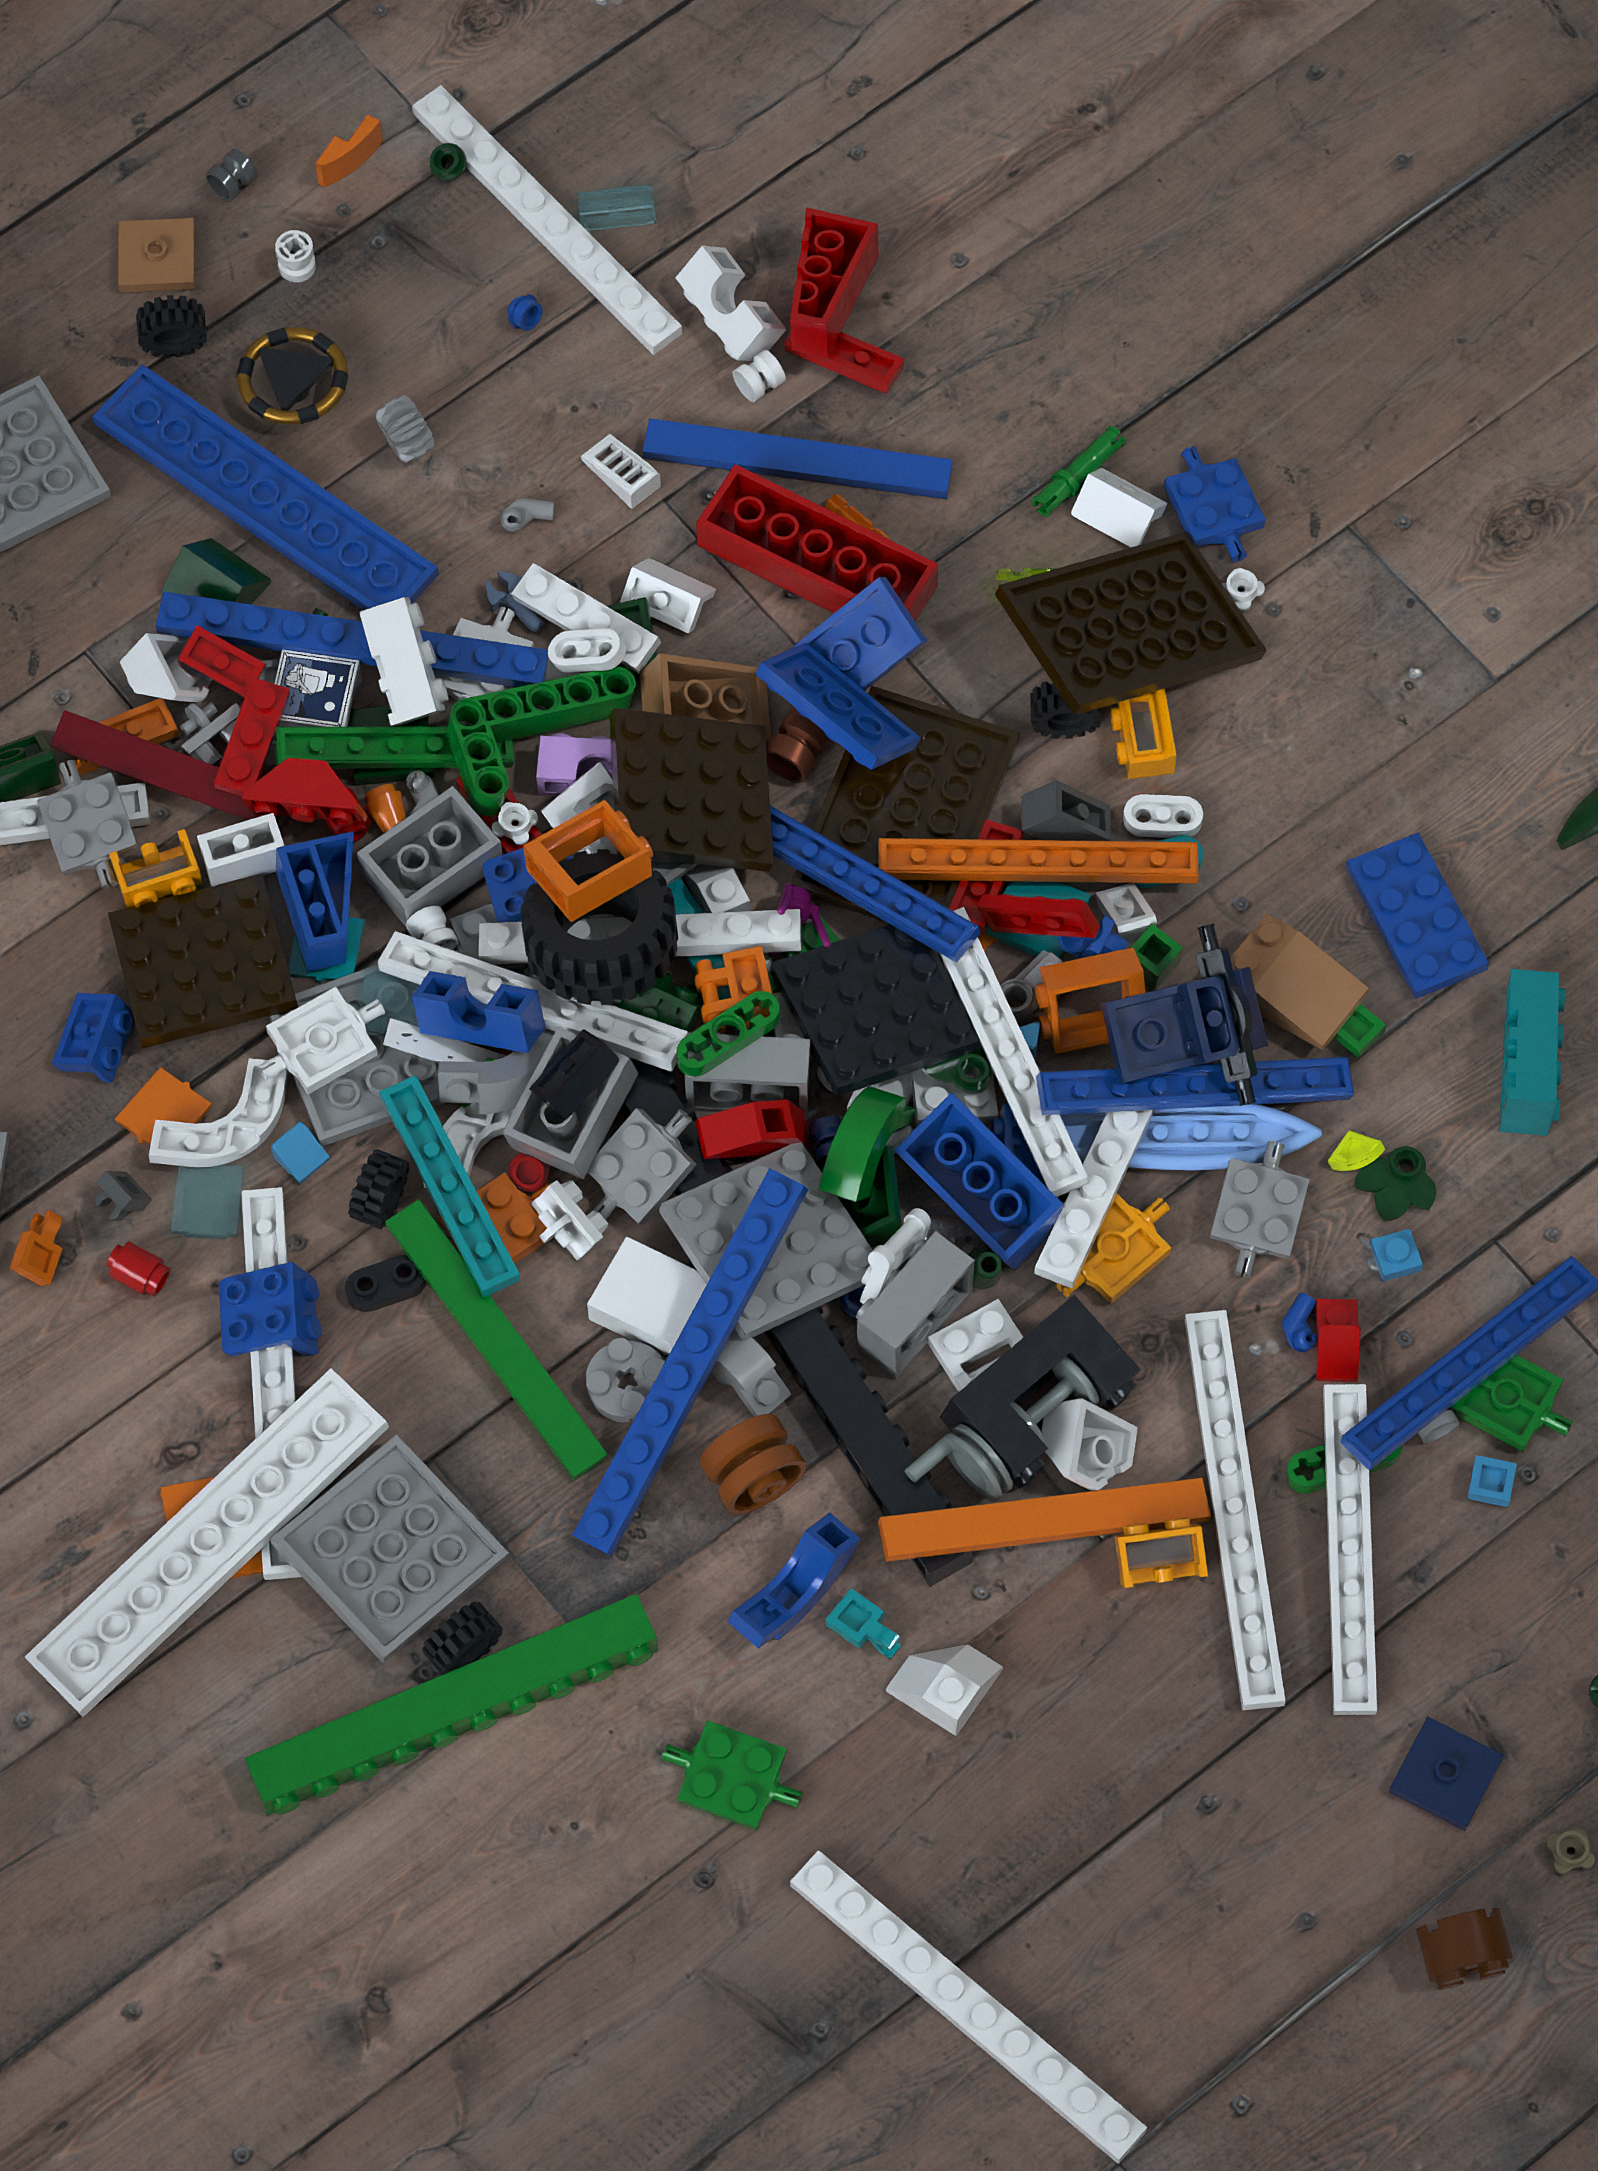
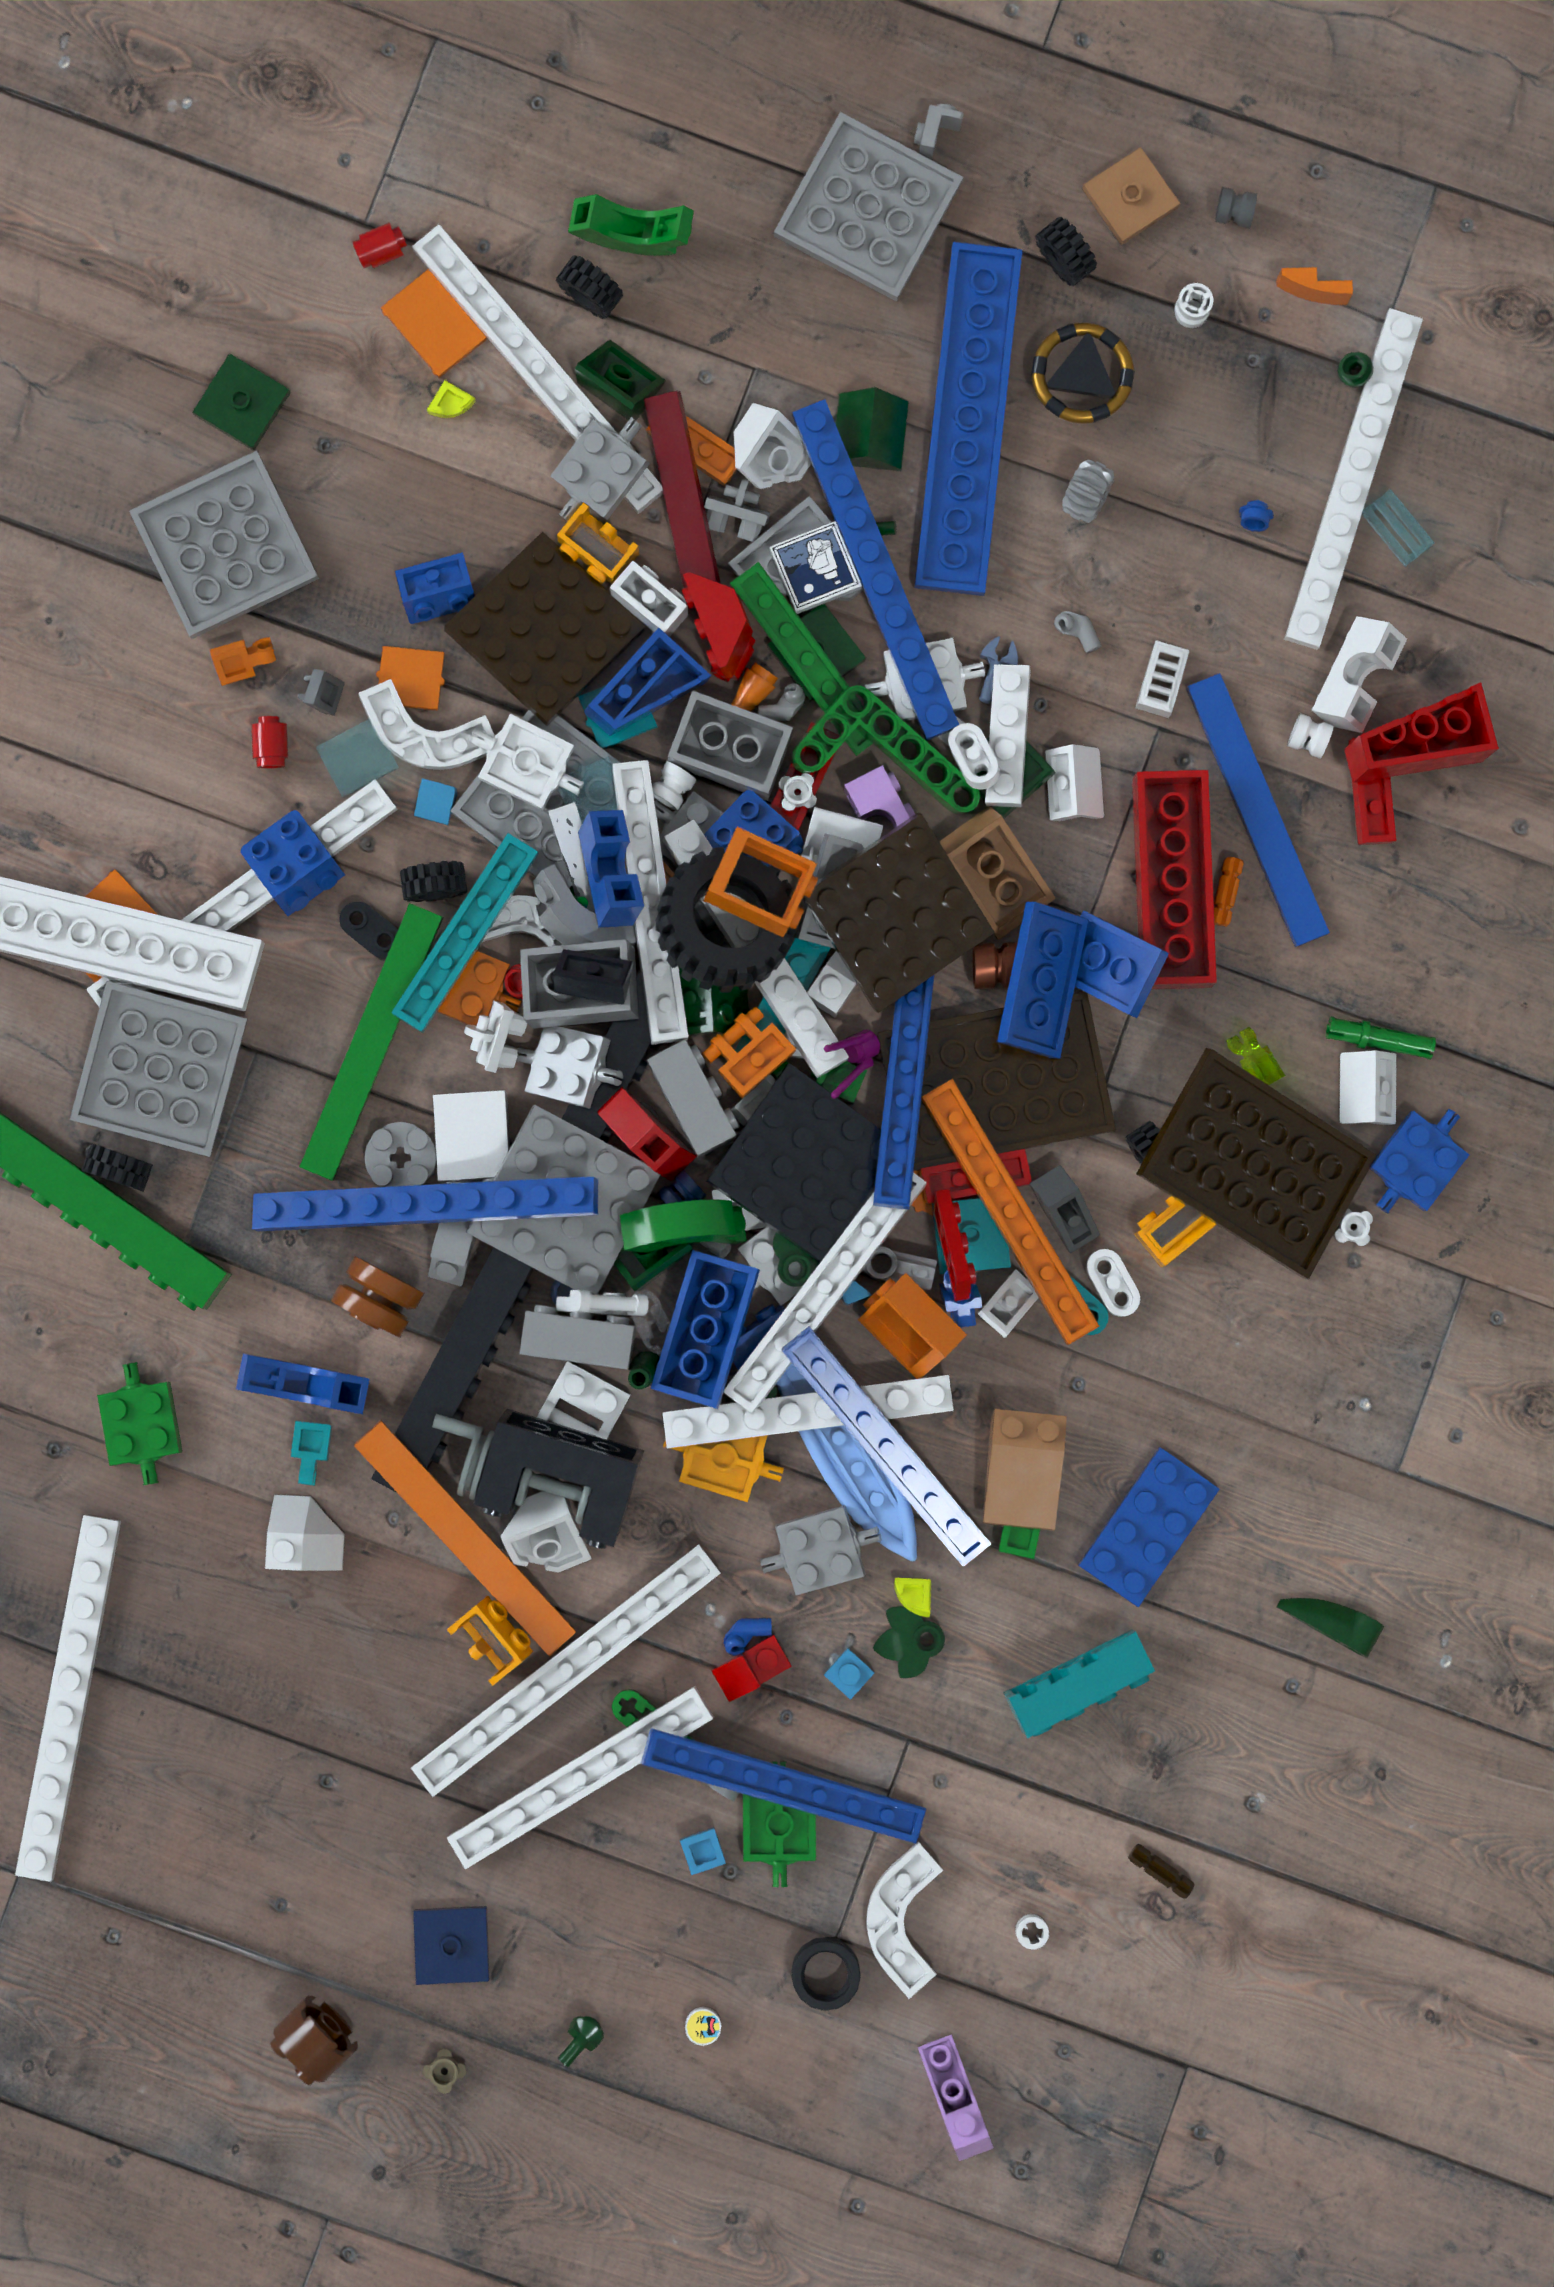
camera: 50 degrees right, 20 degrees up
(221, 660) = (794, 482): red plate -> none
(252, 736) = (743, 547): red plate -> none
(404, 660) = (869, 626): white wedge -> none
(758, 1027) = (727, 1074): green beam -> none
(1157, 955) = (980, 1349): green brick -> none
(1191, 1023) = (931, 1426): dark blue piece -> none

